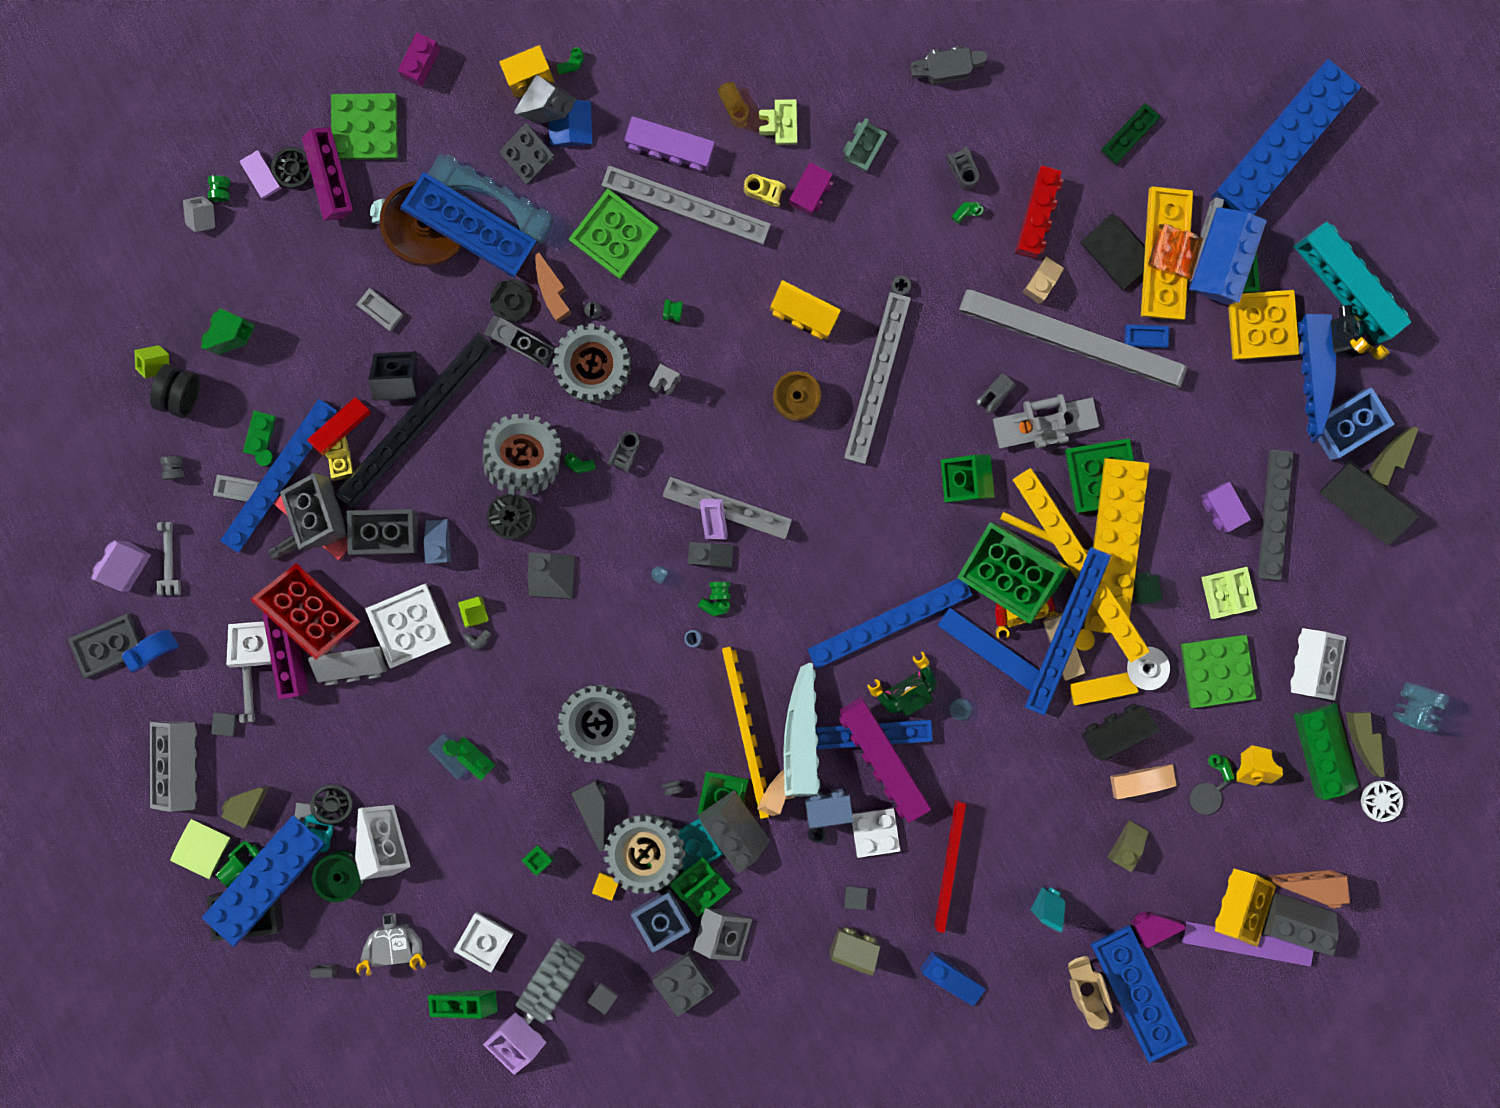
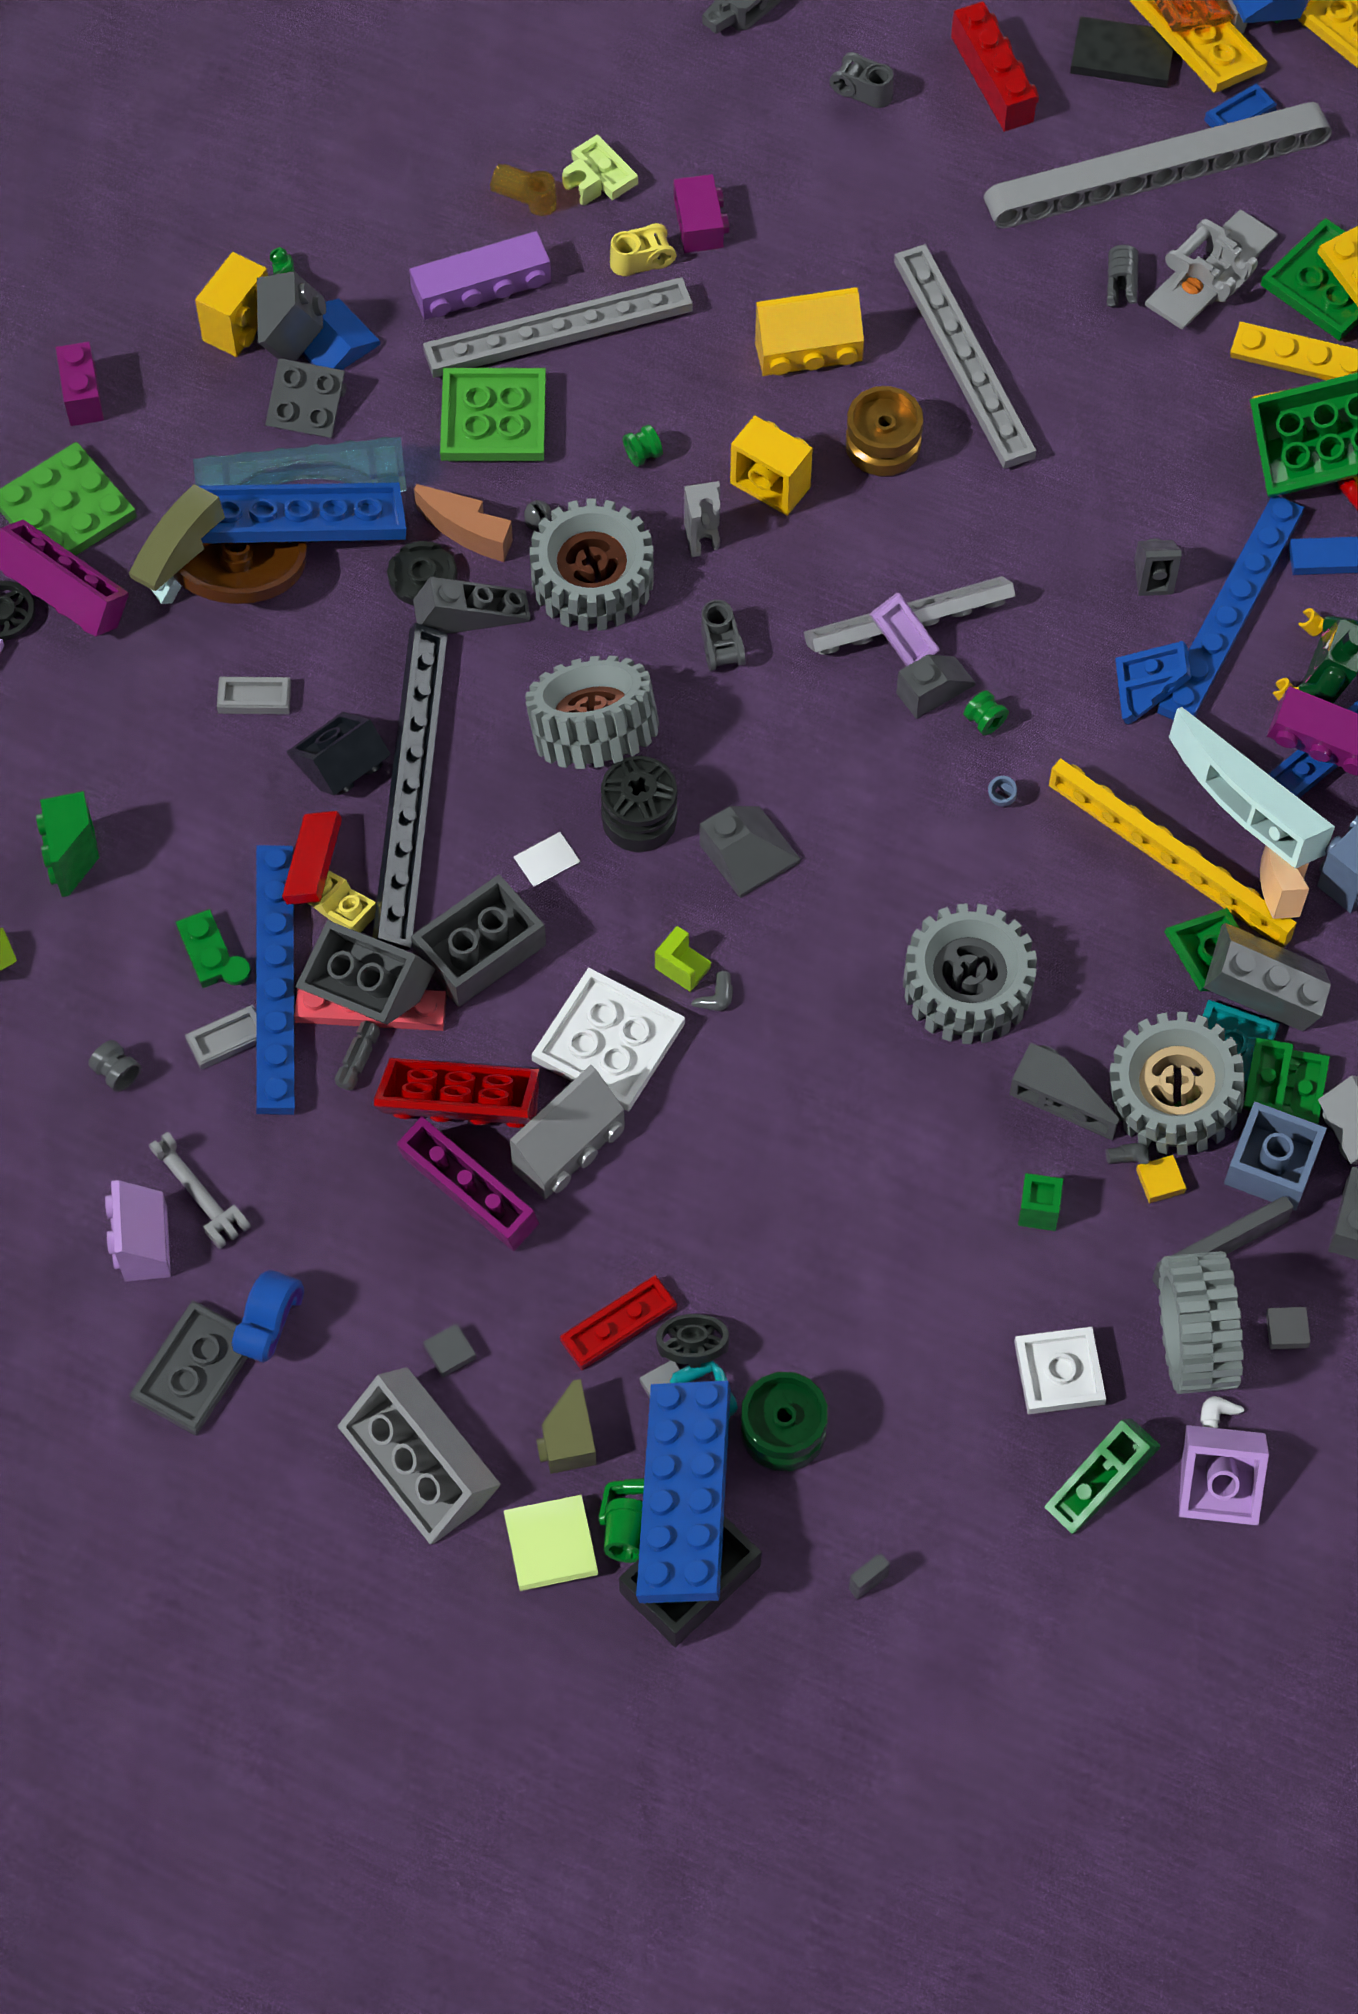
camera: 35 degrees left, 25 degrees down
(175, 391) = (49, 956): pearl dark grey wheel -> none
(247, 645) = (406, 1209): white plate -> none
(249, 715) = (476, 1312): light grey hinge -> none
(308, 767) = (618, 1322): none -> red tile
(379, 843) = (810, 1335): white slope -> none
(388, 203) = (177, 537): none -> olive slope
(391, 946) = (939, 1464): light grey torso -> none
(437, 542) = (565, 911): sand blue slope -> none
(448, 762) = (805, 1166): clear light blue tile -> none
(454, 506) = (546, 859): none -> white sticker
(469, 757) = (854, 1140): green hinge -> none
(577, 465) = (675, 698): green arm -> none
(600, 862) = (1128, 1153): none -> dark grey animal
(604, 939) = (1240, 1231): none -> dark grey tile
(659, 574) = (890, 749): clear light blue hinge -> none
(672, 787) = (1137, 987): dark grey bush -> none
(716, 608) = (998, 742): green arm -> none
(722, 374) = (771, 465): none -> yellow brick
(813, 633) = (1150, 677): none -> blue wing
(864, 145) = (723, 130): sand green bracket -> none
(869, 573) = (1157, 566): none -> dark grey slope
(896, 281) = (901, 236): dark grey bush -> none
(967, 209) = (907, 119): green arm -> none
(967, 478) = (1174, 385): green slope -> none
(1043, 280) = (1066, 134): tan slope -> none

